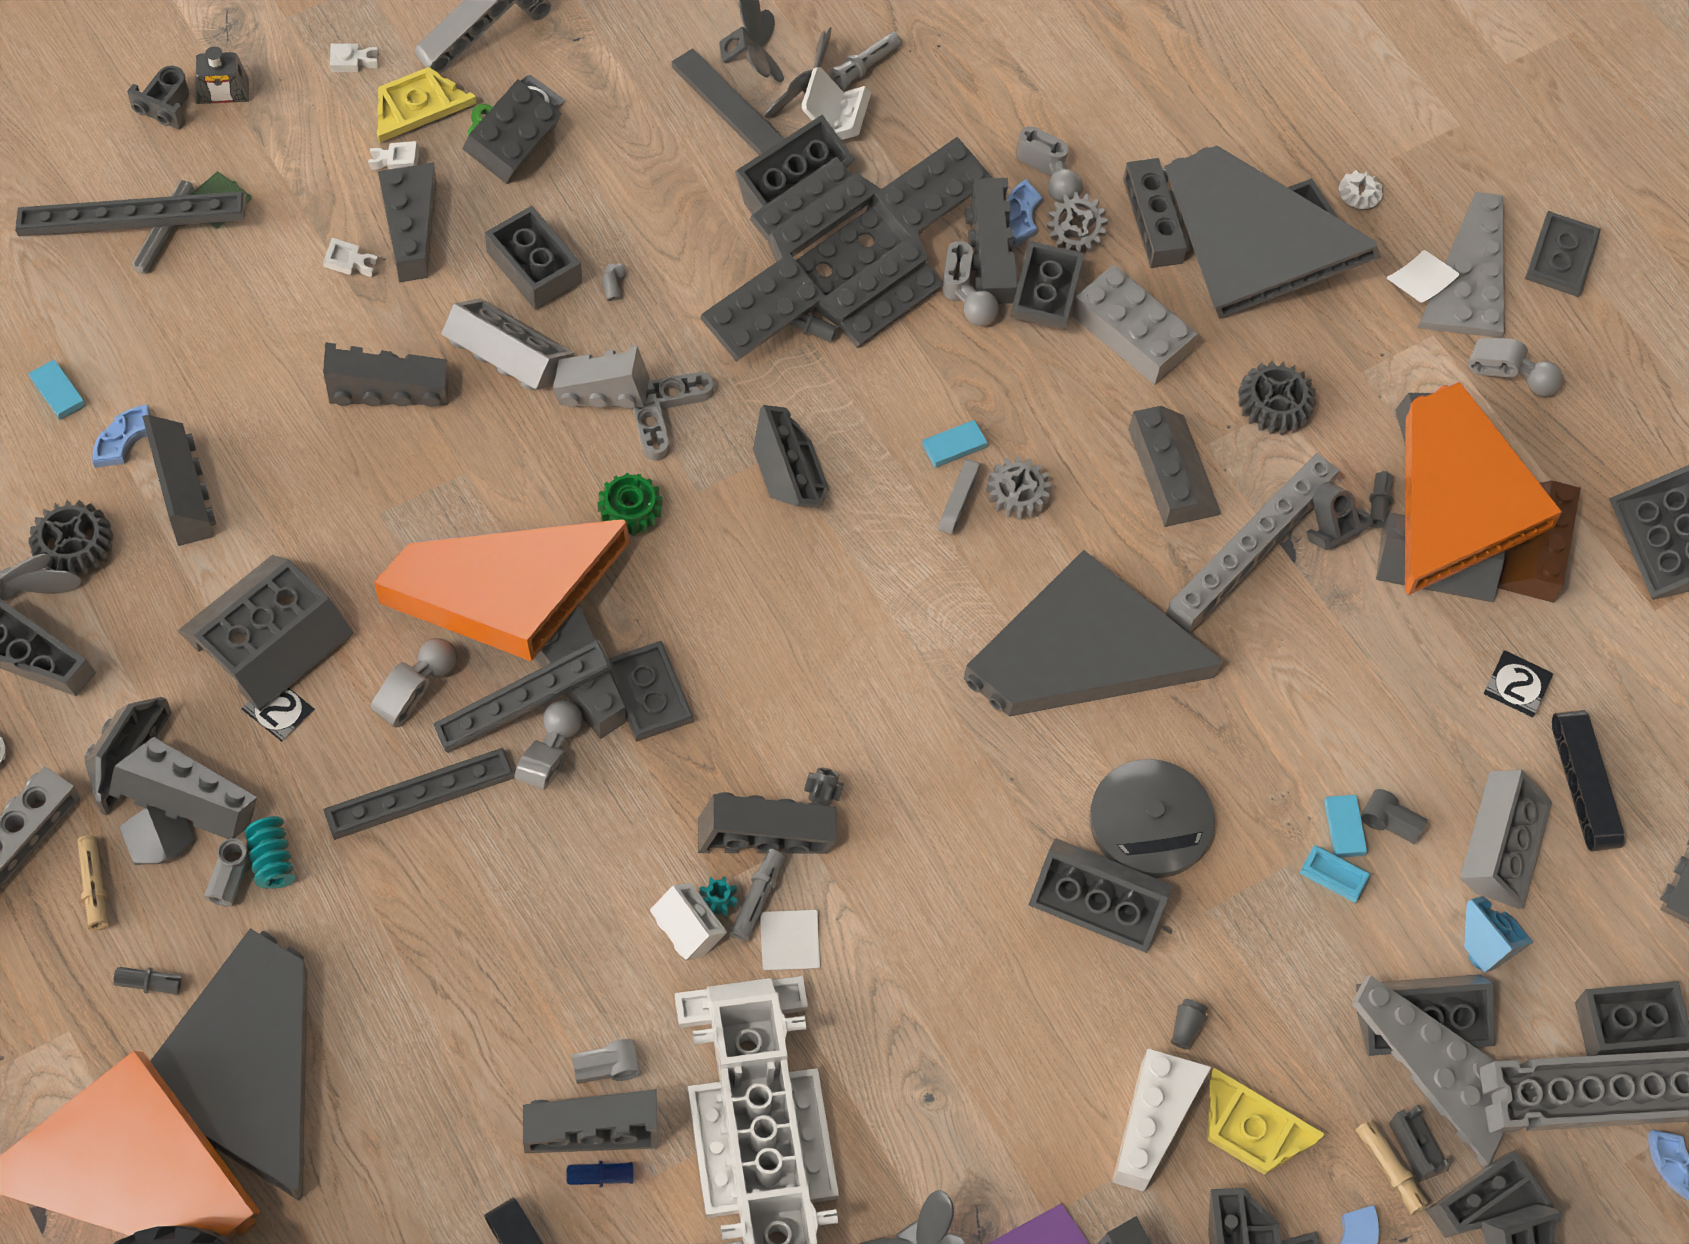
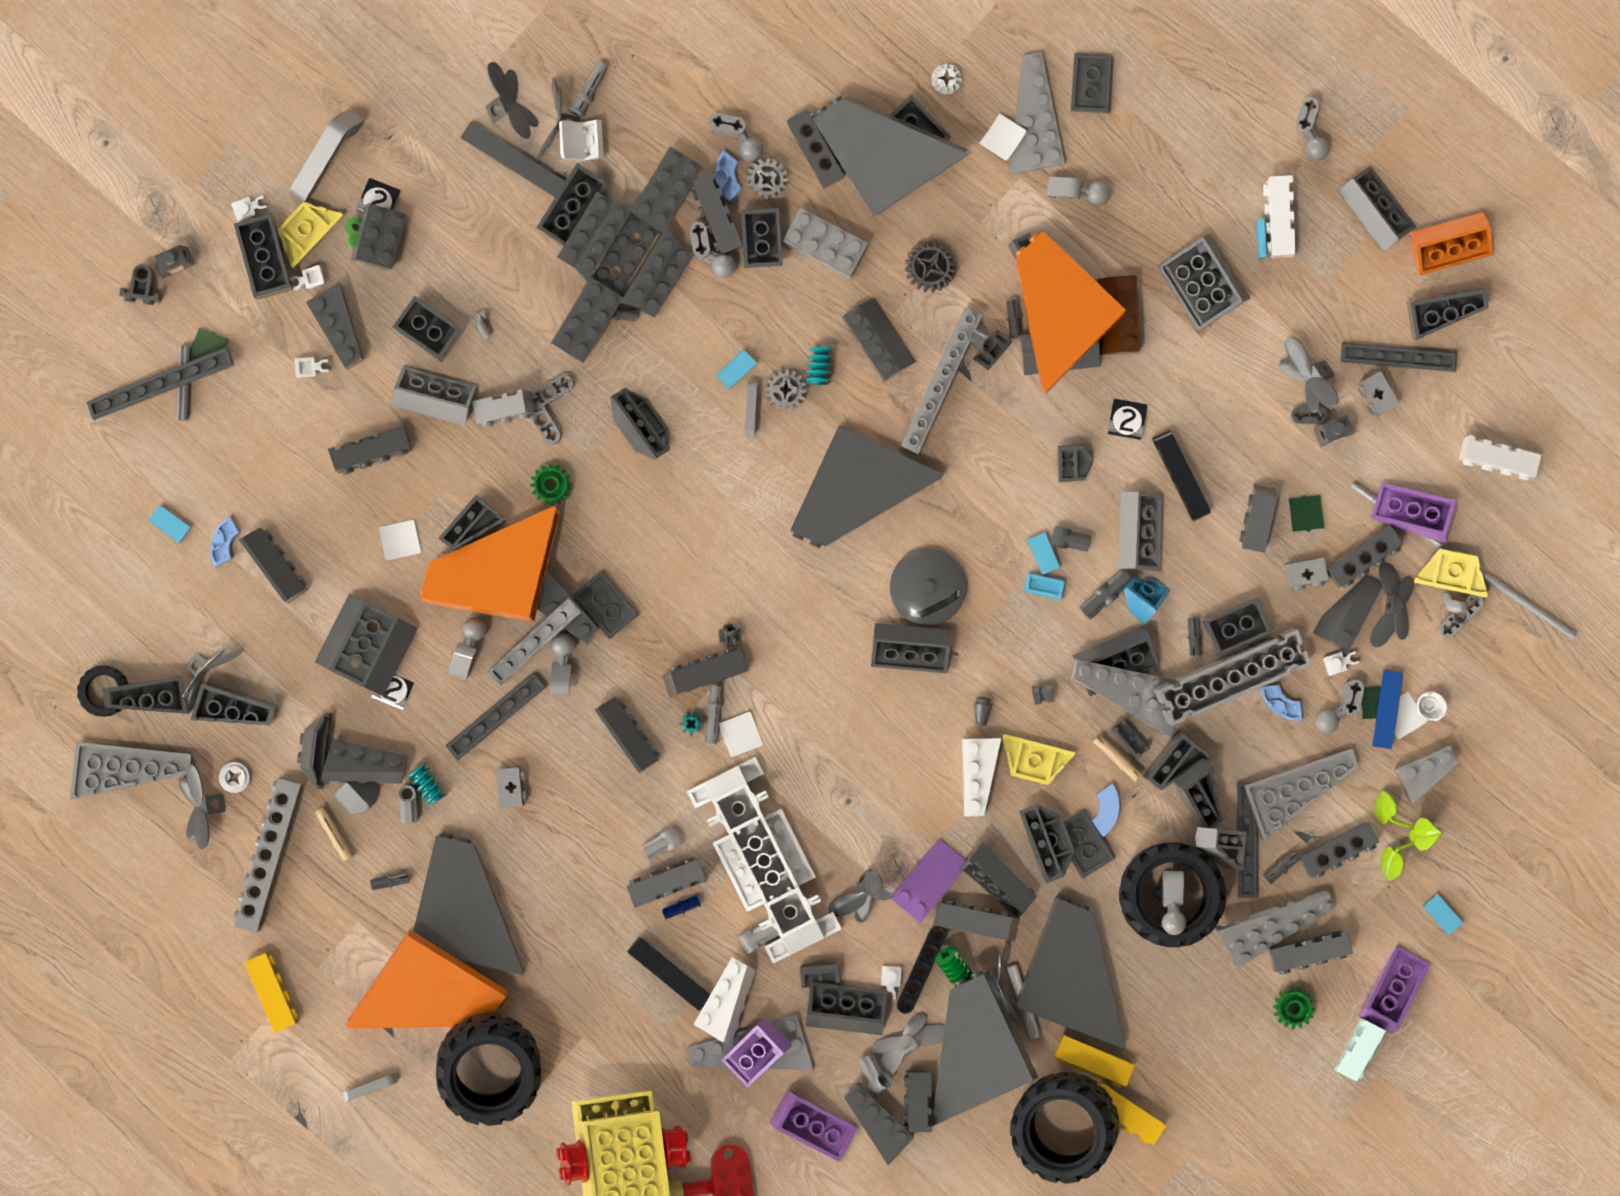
camera: 10 degrees left, 25 degrees up
(68, 528) = (226, 616): dark grey gear -> none
(344, 109) = (263, 256): none -> dark grey brick
(378, 512) = (399, 540): none -> white sticker
(397, 882) = (505, 797): none -> light grey brick
(491, 510) = (471, 524): none -> dark grey wedge
(611, 878) = (627, 735): none -> dark grey slope
(688, 921) = (679, 746): white brick -> none
(1078, 470) = (819, 365): none -> teal piece
(1294, 1028) = (1042, 694): none -> dark grey wheel
(1424, 710) = (1073, 462): none -> dark grey slope
(1429, 913) = (1105, 594): none -> dark grey piece
(1559, 1020) = (1194, 636): none -> dark grey axle

